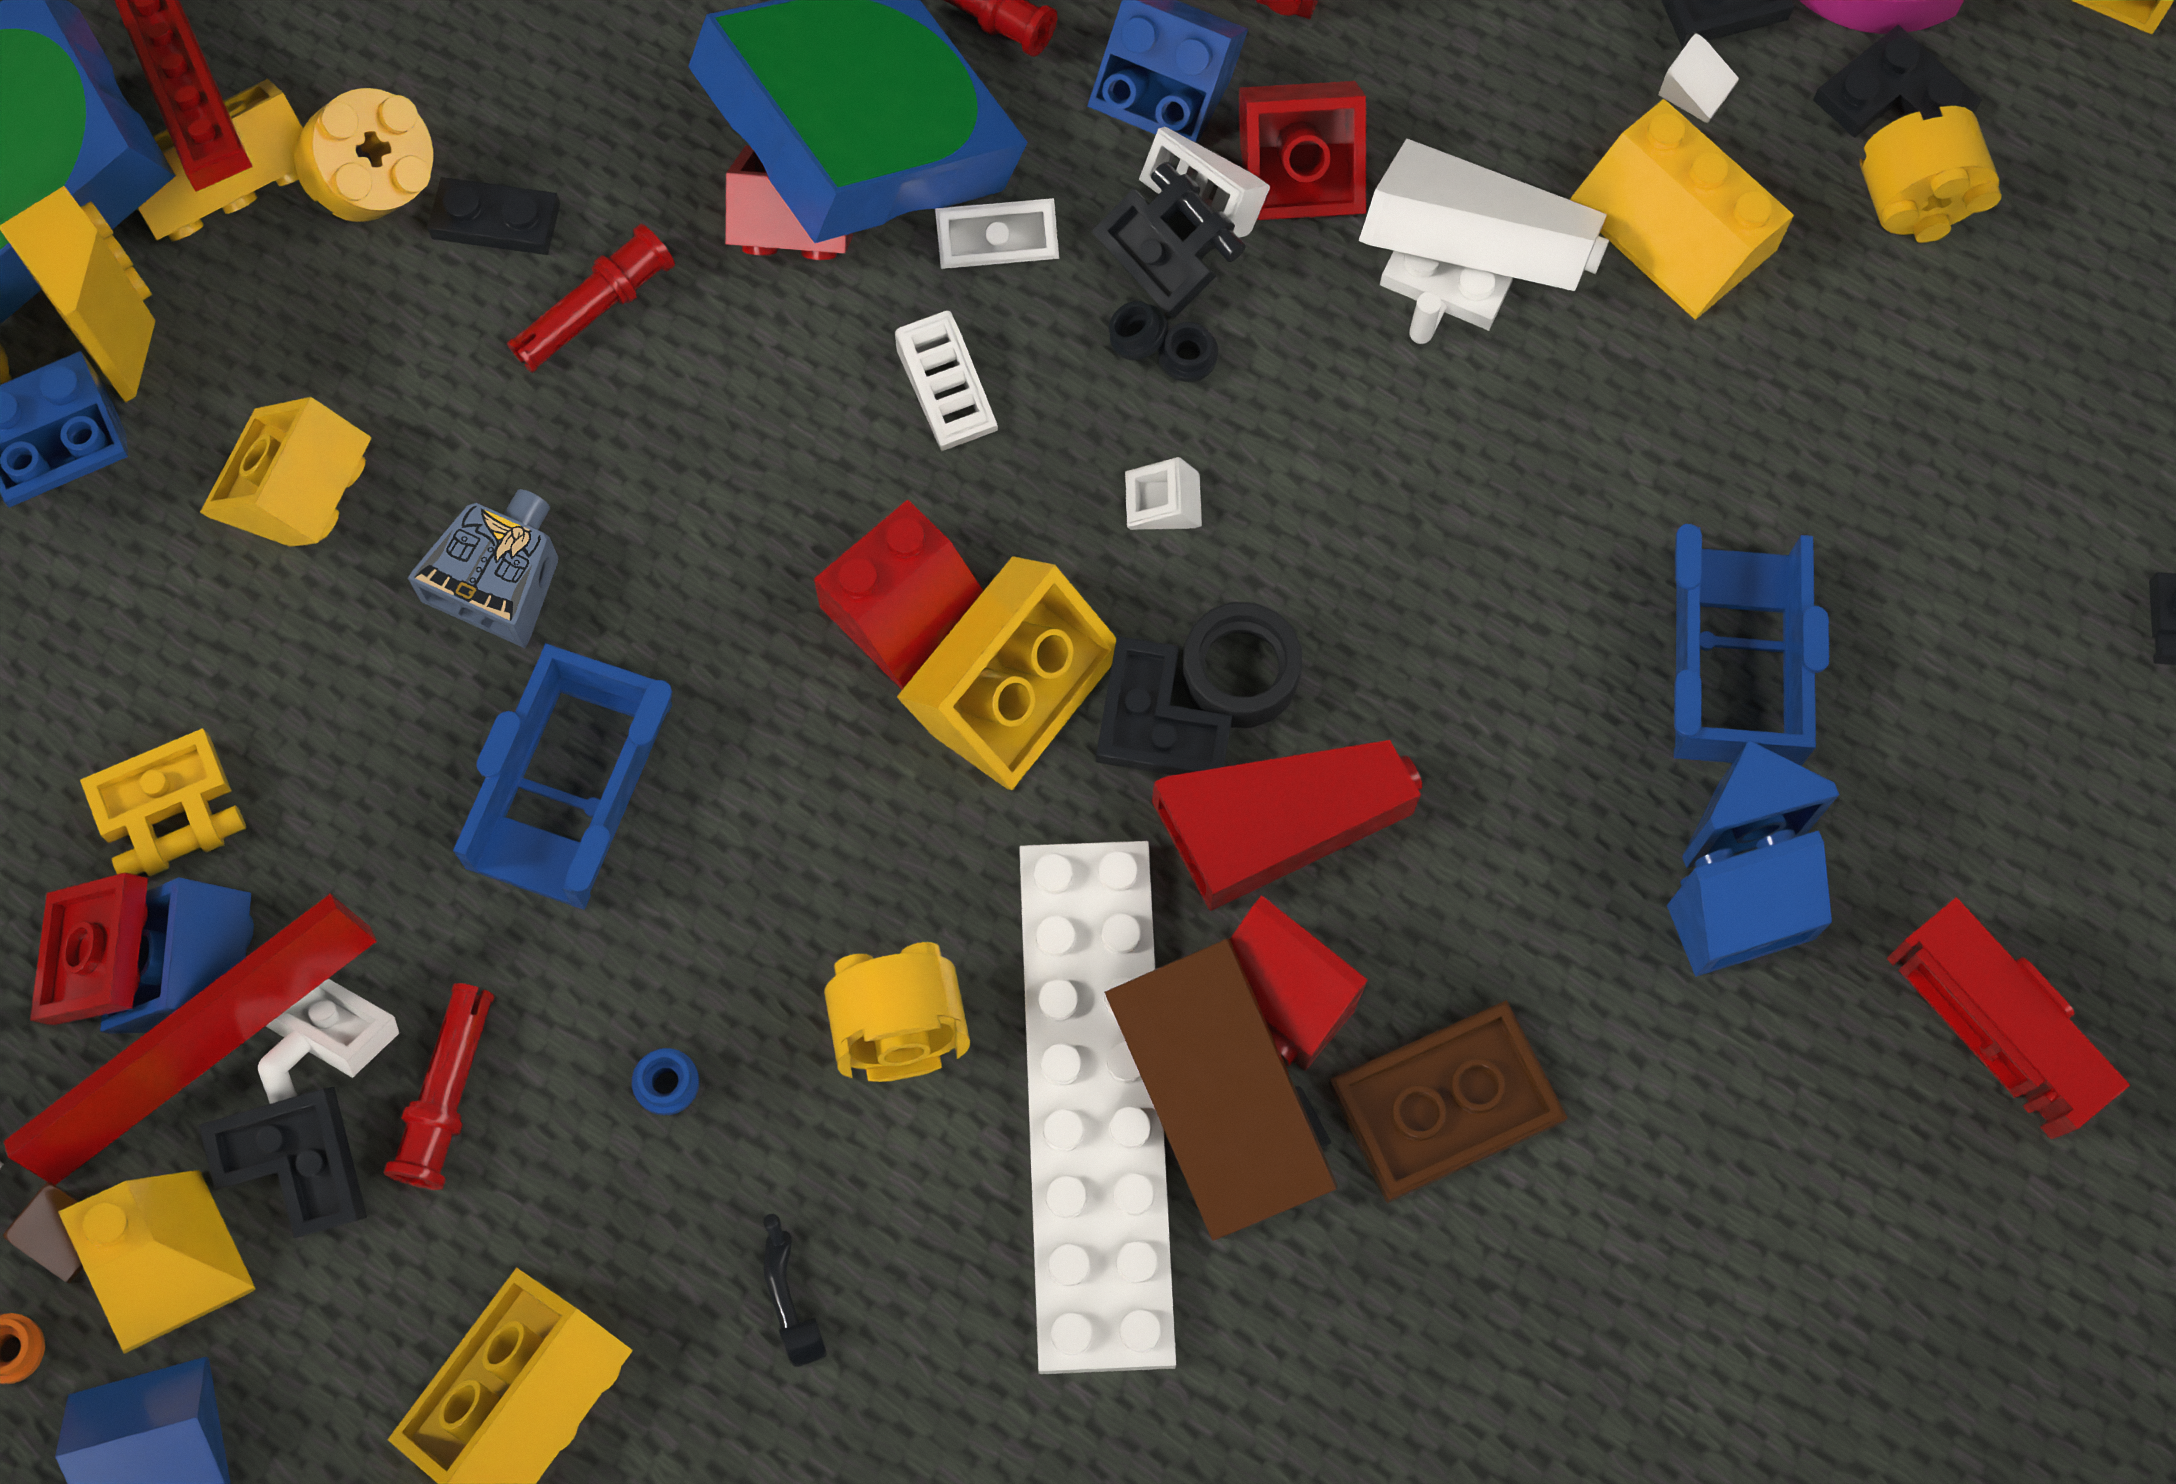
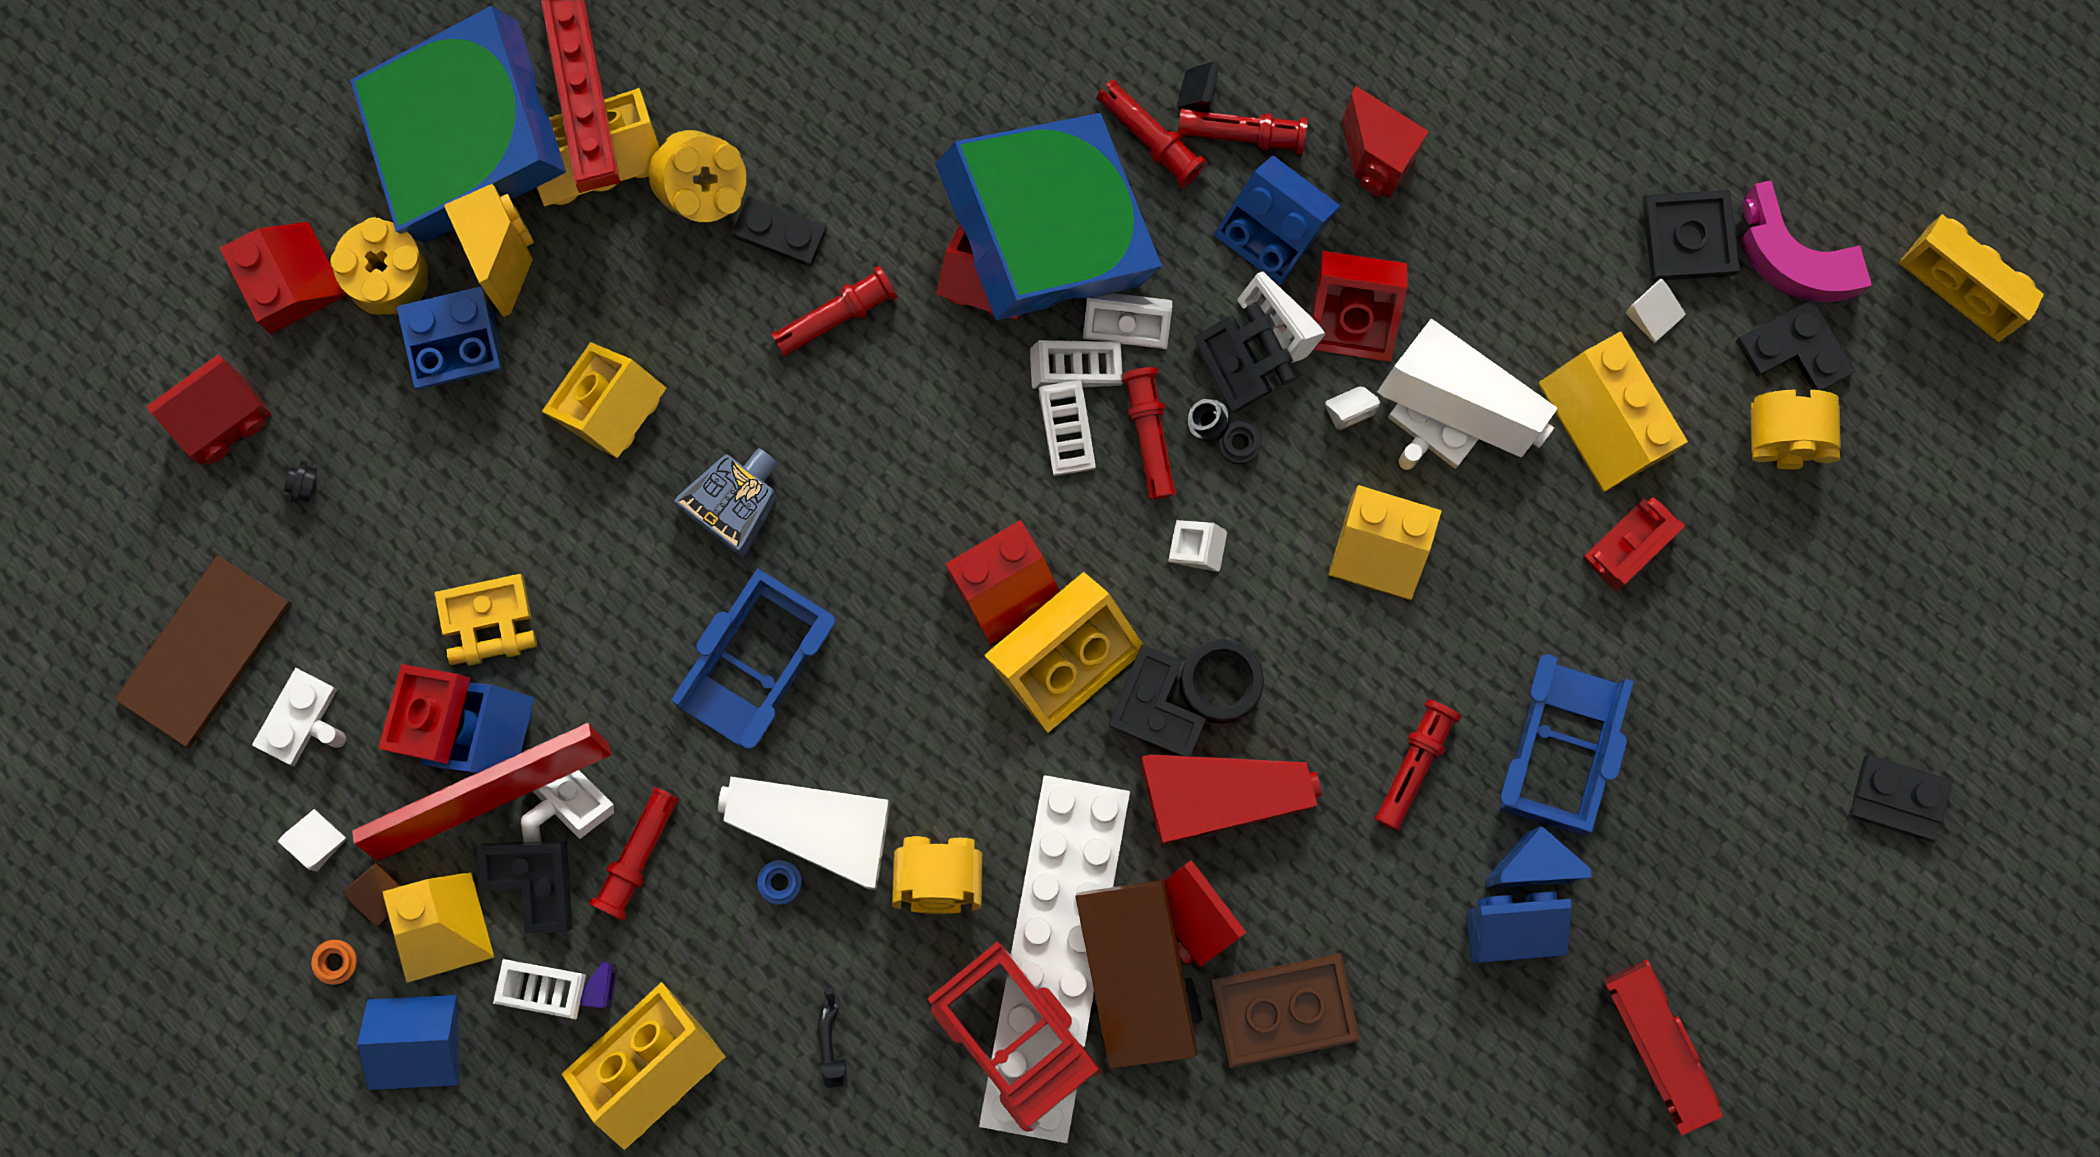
camera: 10 degrees right, 10 degrees up
(285, 1312) = (511, 982): none -> white slope
(421, 1294) = (600, 987): none -> dark purple slope
(696, 985) = (817, 825): none -> white slope
(912, 283) = (1044, 348): none -> white slope
(1051, 339) = (1147, 413): none -> red pin
(1123, 1267) = (1050, 1078): none -> red piece
(1331, 279) = (1352, 407): none -> white slope
(1420, 434) = (1384, 542): none -> yellow slope
(1541, 688) = (1431, 745): none -> red pin
(1756, 368) = (1633, 542): none -> red hinge

